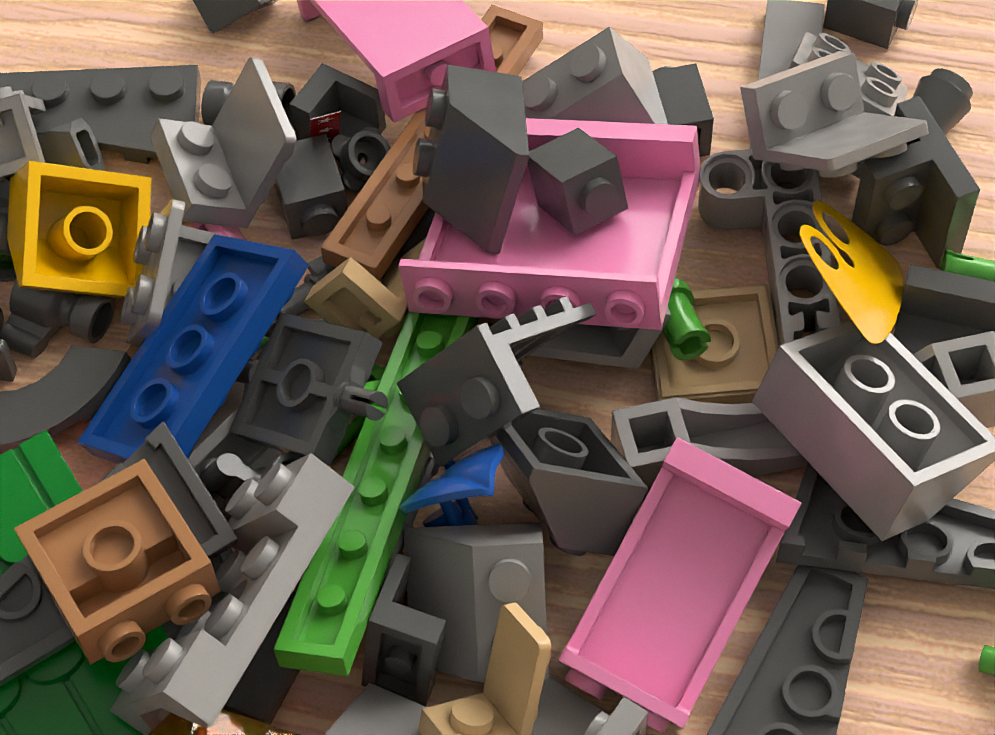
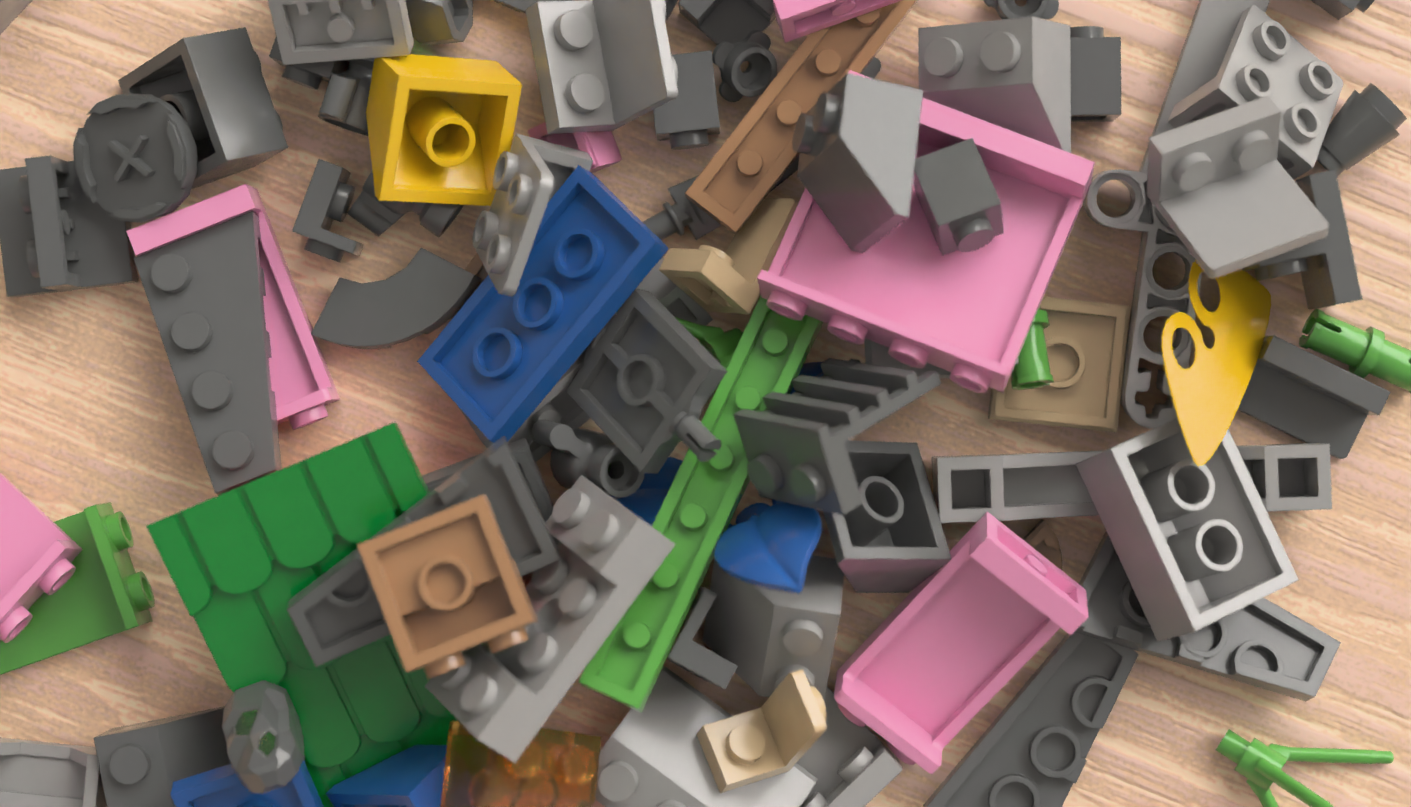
camera: 10 degrees right, 30 degrees up
(326, 124) = (710, 49): red sticker -> none

